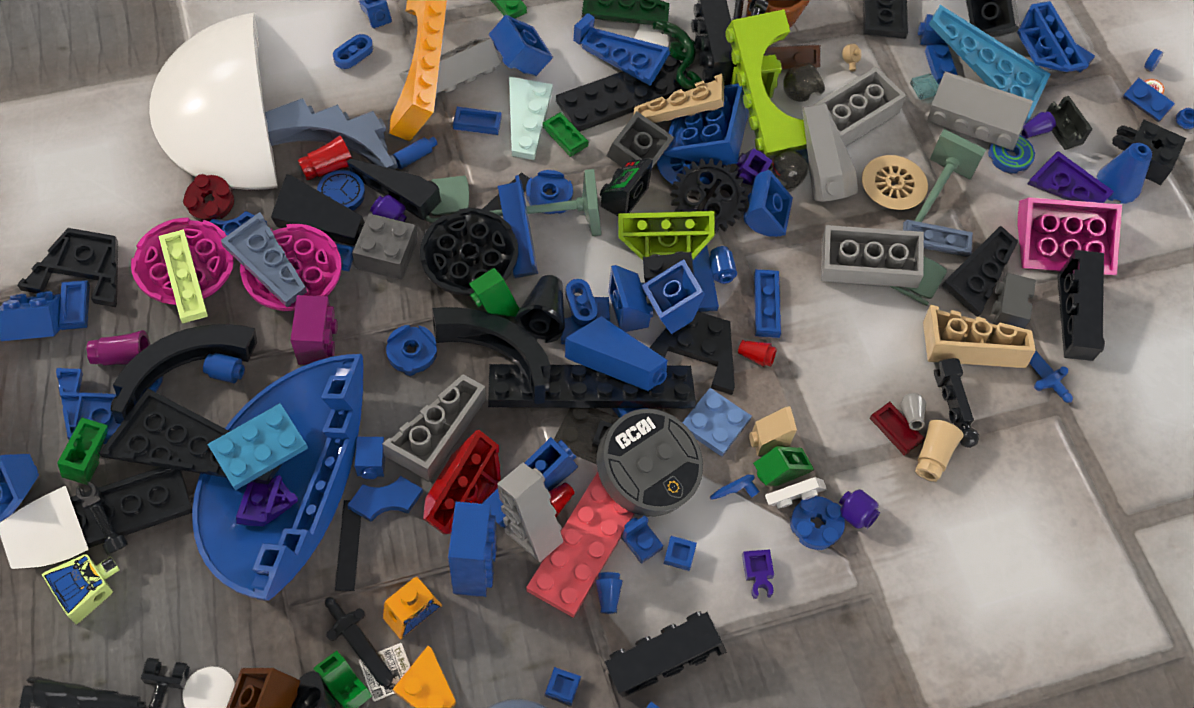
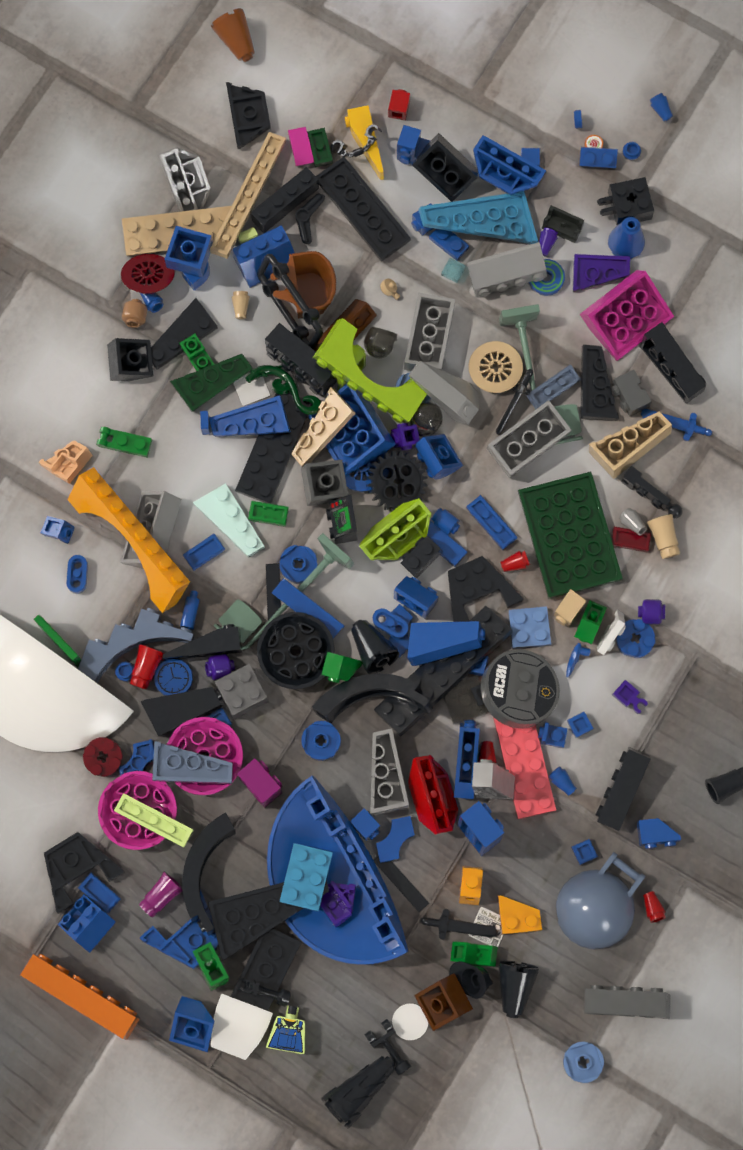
camera: 35 degrees left, 15 degrees up
(223, 367) = (229, 850): blue brick -> none
(276, 74) = (57, 639): none -> green tile
(303, 148) = (124, 671): none -> blue plate
(520, 46) = (184, 477): blue brick -> none
(675, 296) = (442, 573): blue slope -> none
(837, 373) = (569, 535): none -> dark green plate
(905, 214) = (520, 389): none -> black sword

